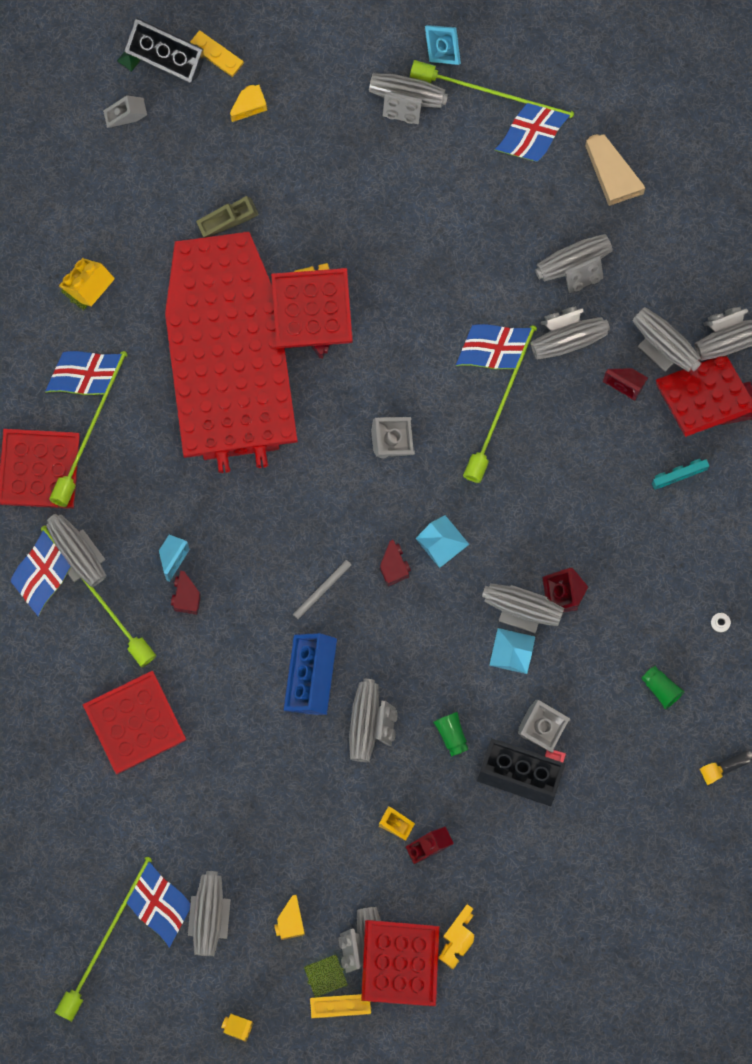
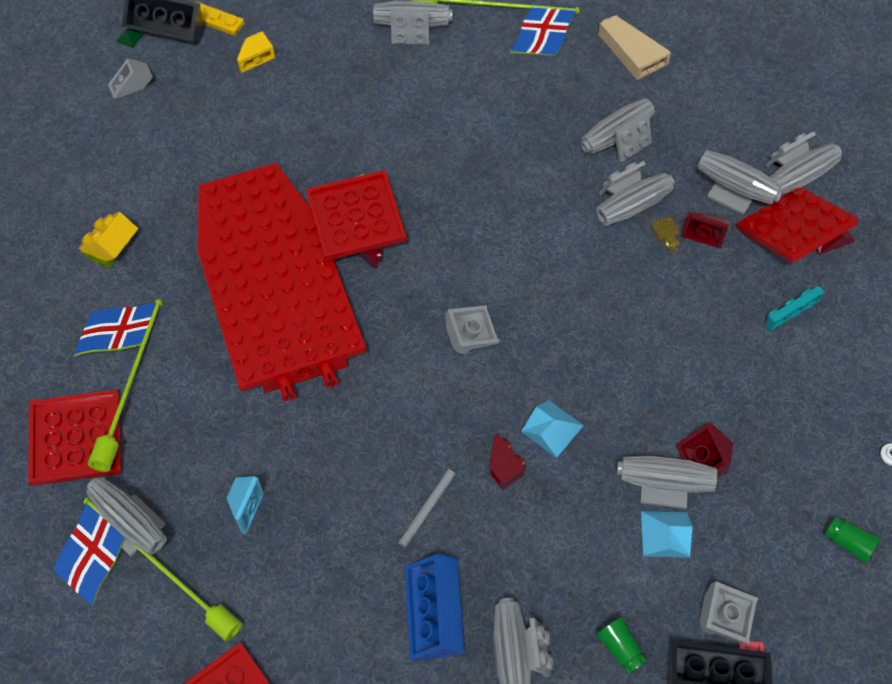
camera: 10 degrees left, 15 degrees down
(187, 596) = (268, 545): dark red slope -> none
(227, 217) = (250, 153): olive slope -> none
(494, 349) = (561, 226): flag -> none
(589, 375) = (666, 231): none -> clear yellow plate

